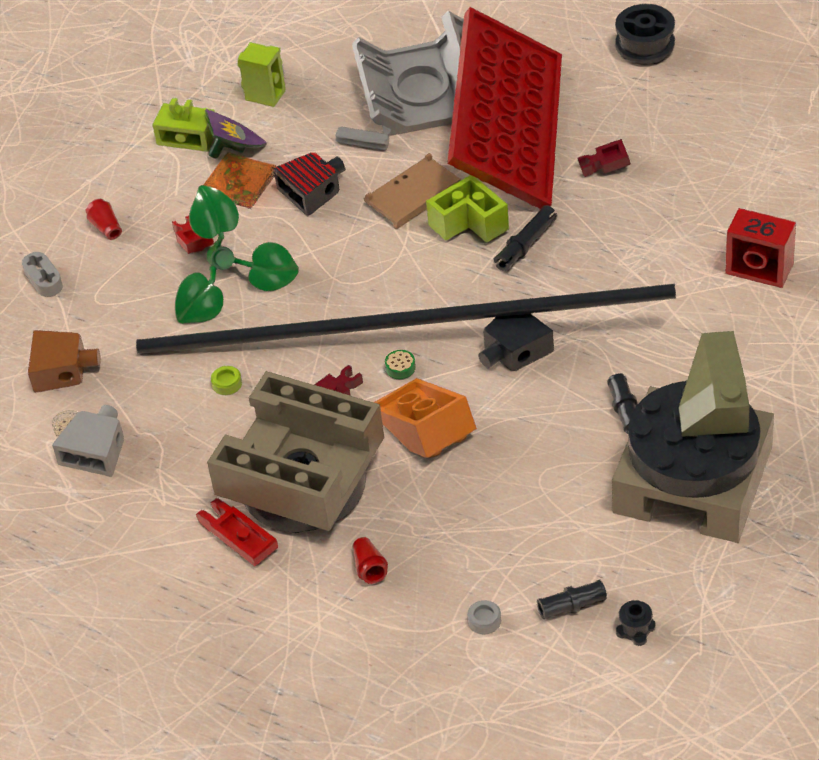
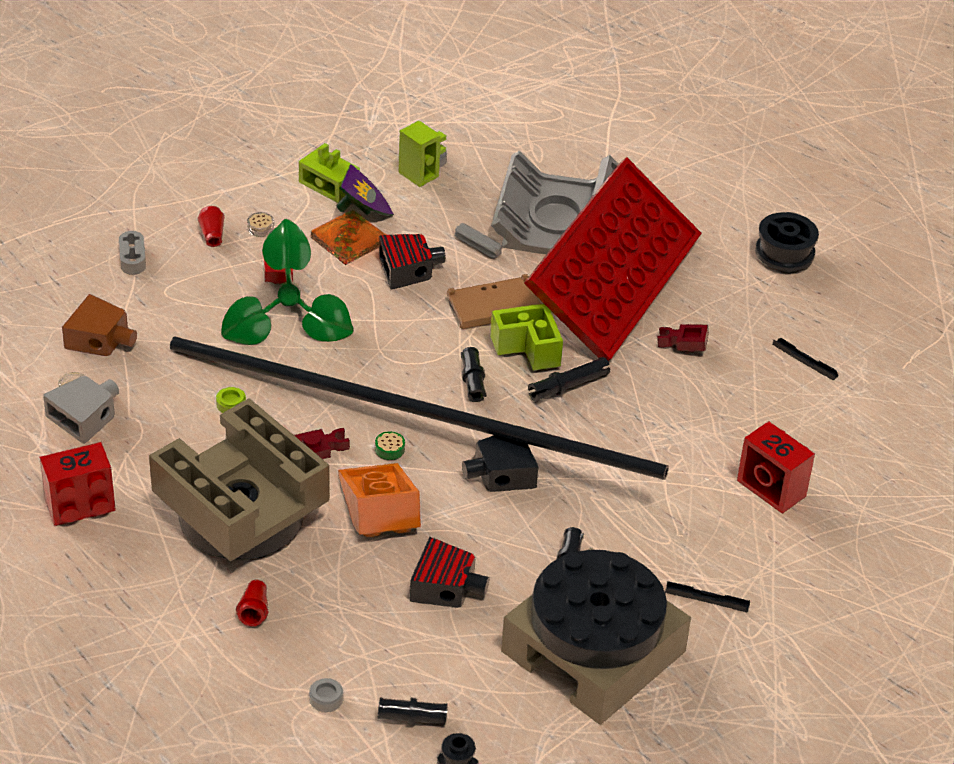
camera: 15 degrees right, 5 degrees down
(140, 516) = (77, 483): none -> red brick
(148, 200) = (260, 224): none -> tile
(238, 532) = (158, 534): red hinge -> none
(436, 267) = (473, 374): none -> black pin
(527, 464) = (445, 576): none -> black torso
(715, 389) = (638, 570): olive wedge -> none
(738, 140) = (791, 350): none -> black piece
(780, 387) = (709, 597): none -> black piece

